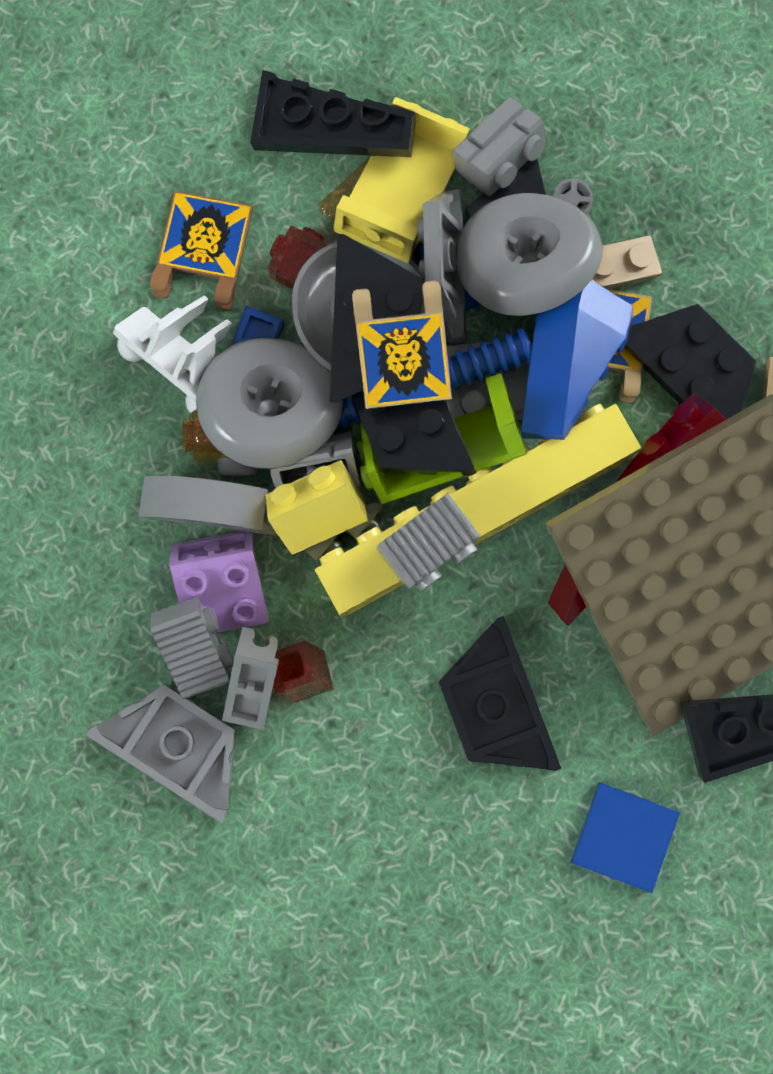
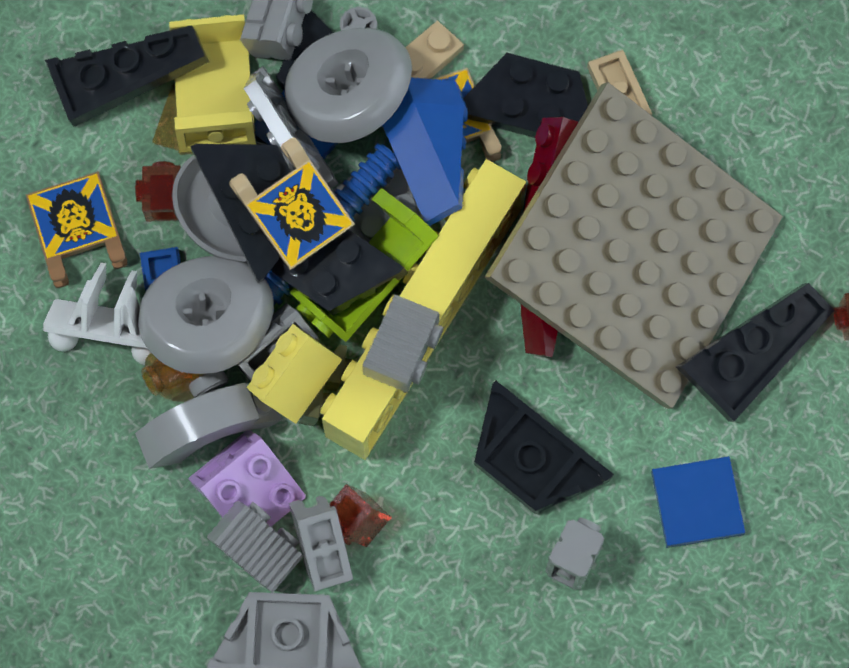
camera: 30 degrees left, 10 degrees down
(481, 827) = (575, 553): none -> light grey brick

